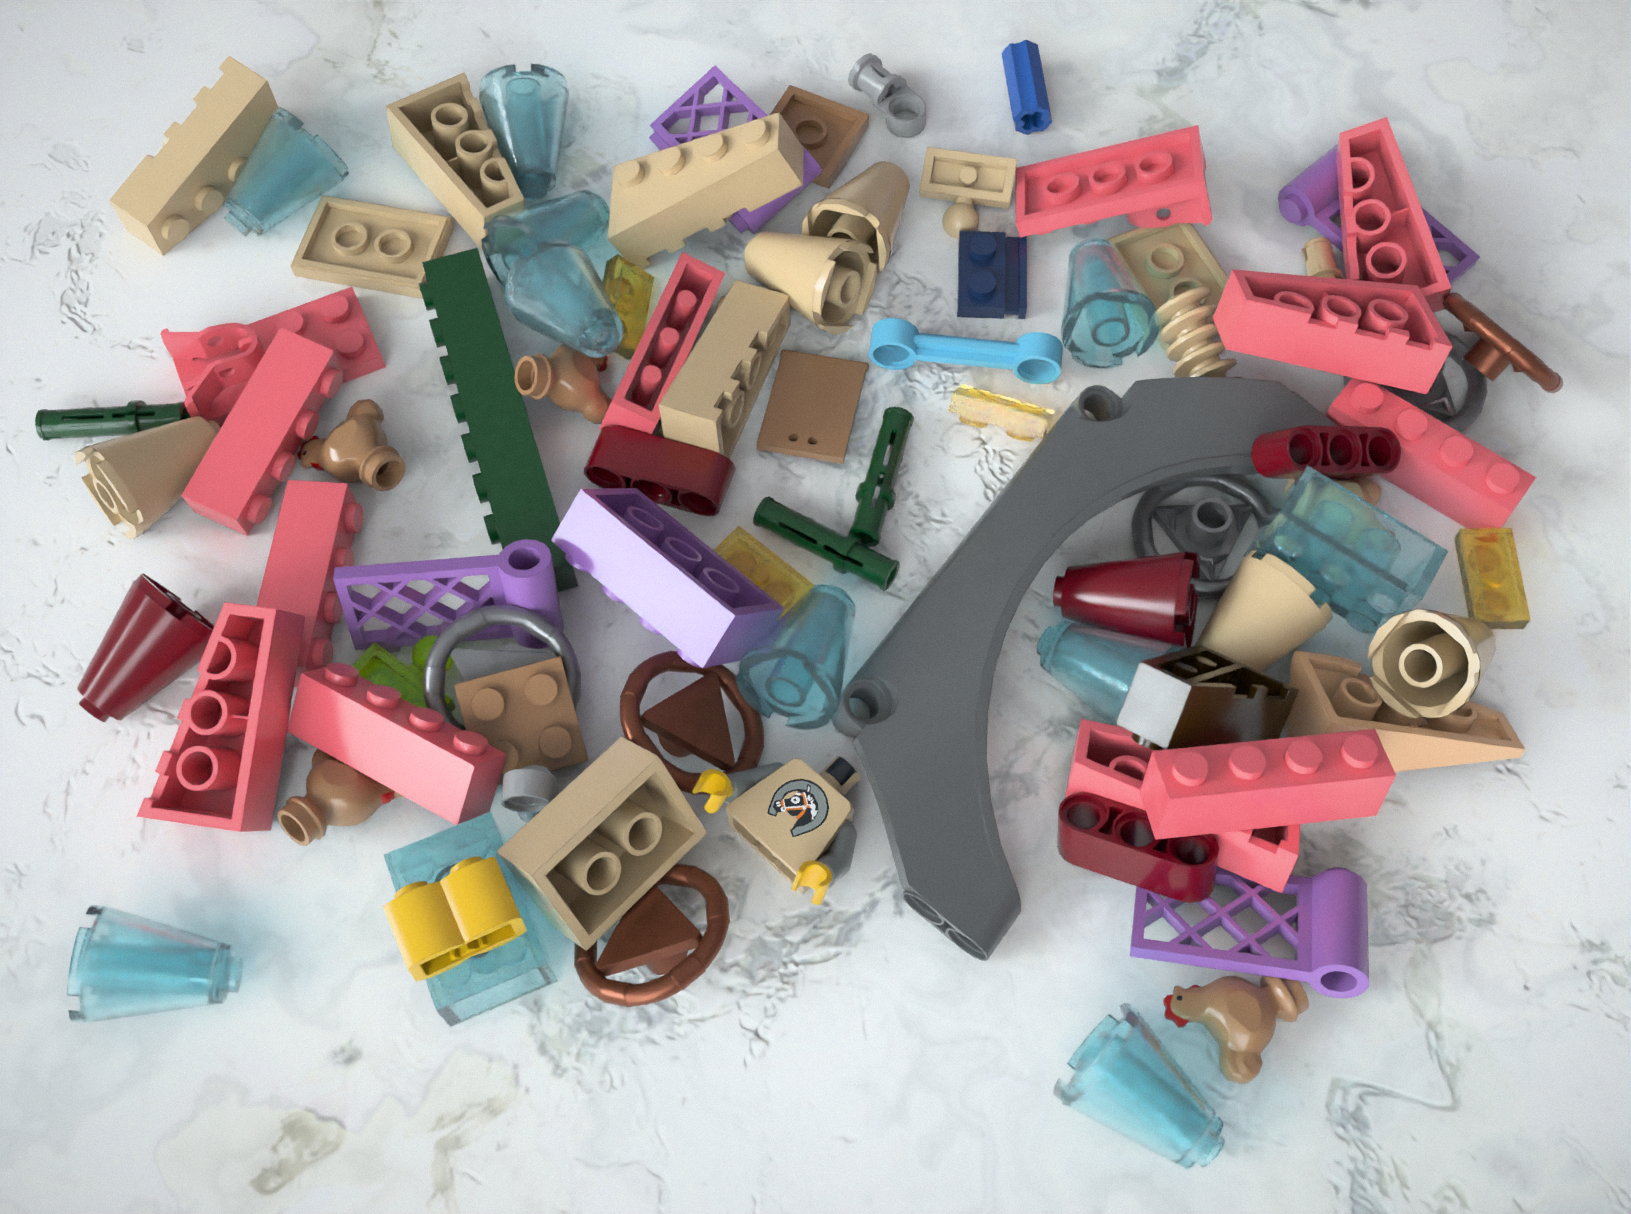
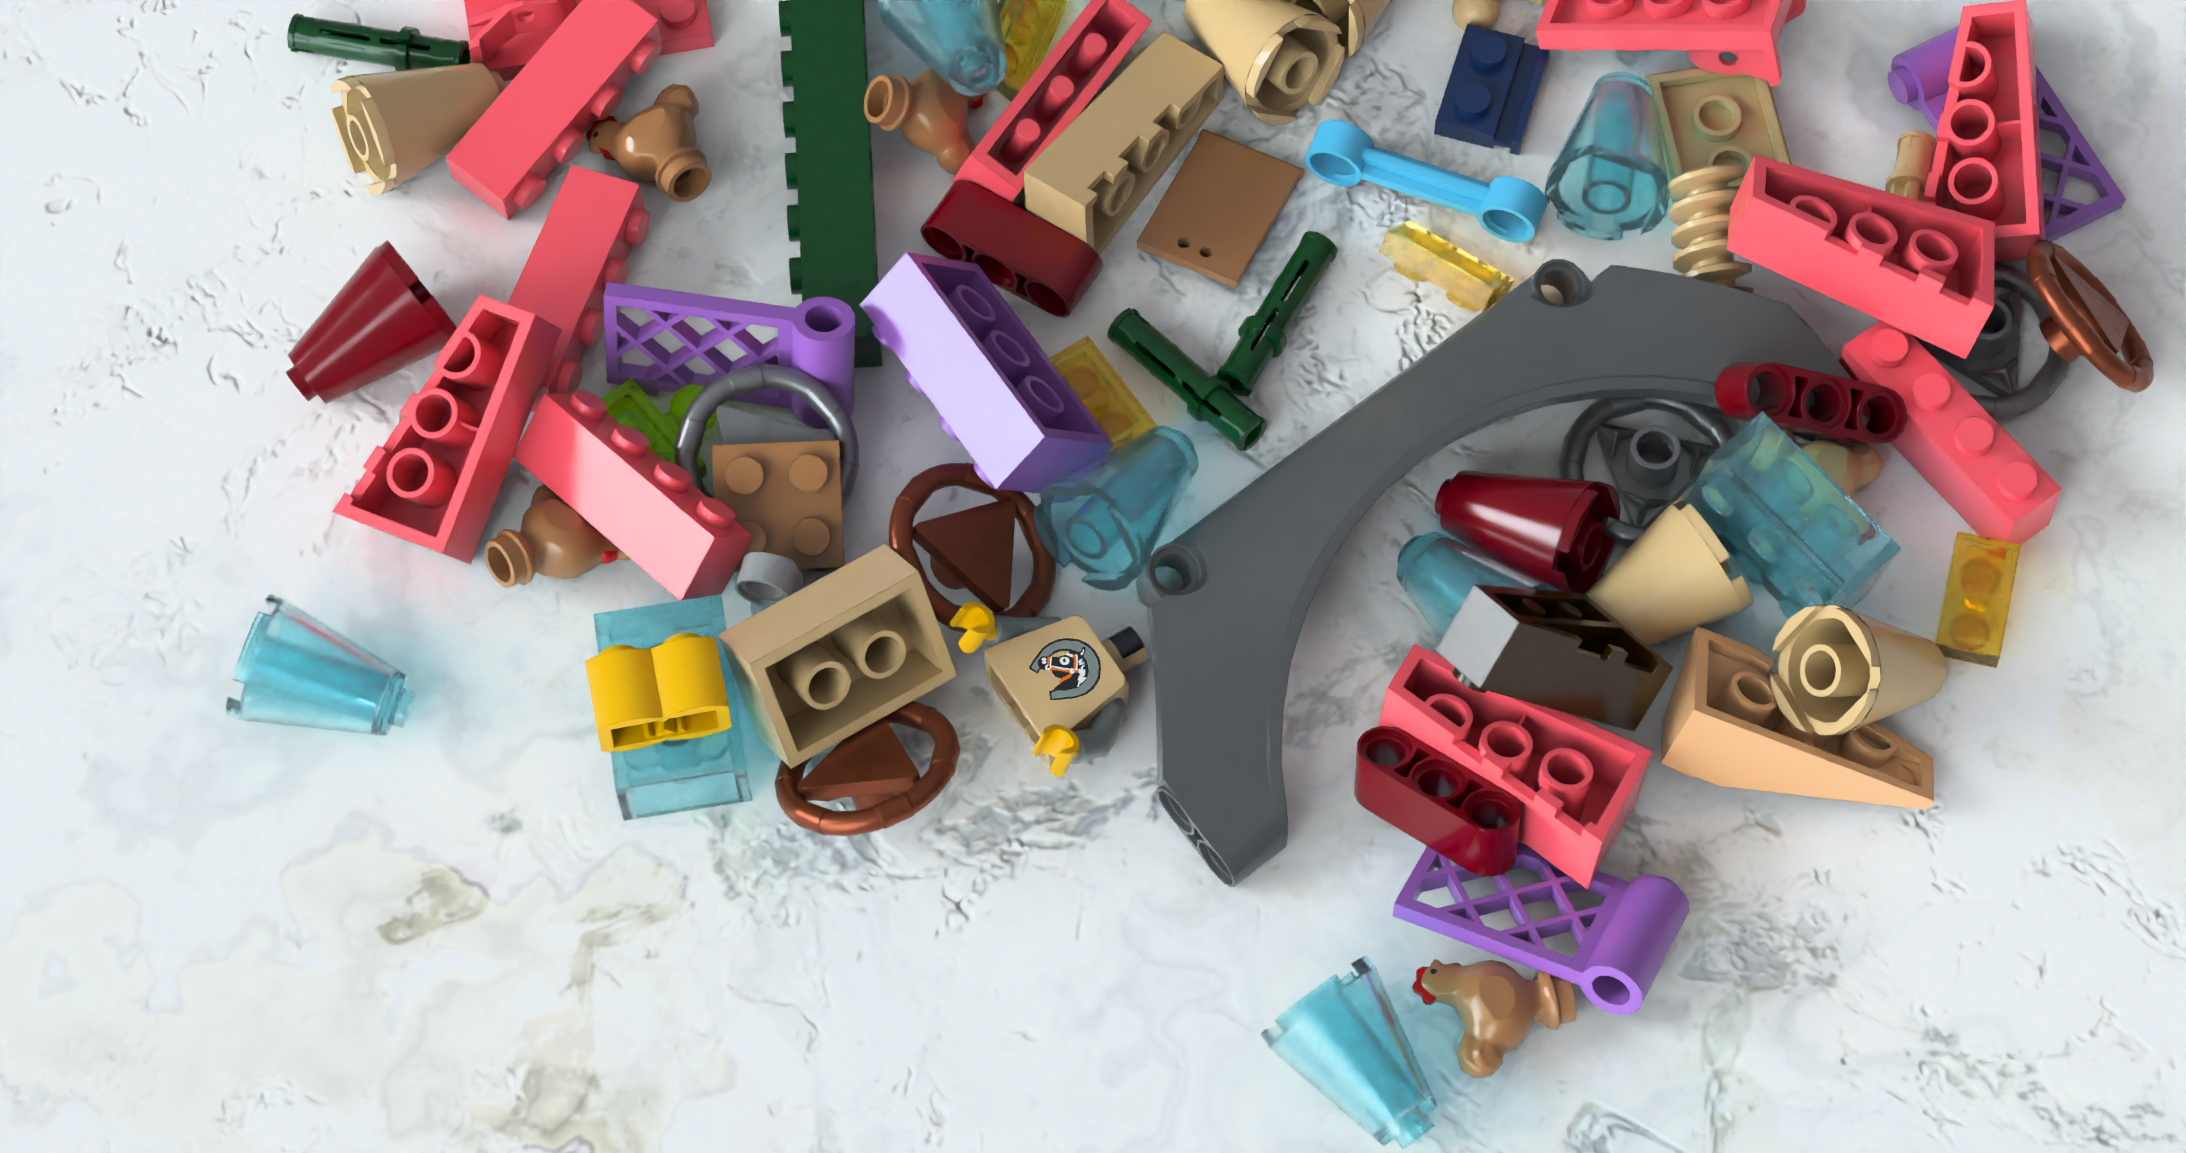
camera: 15 degrees right, 0 degrees up
(1266, 783) = (1587, 754): coral brick -> none

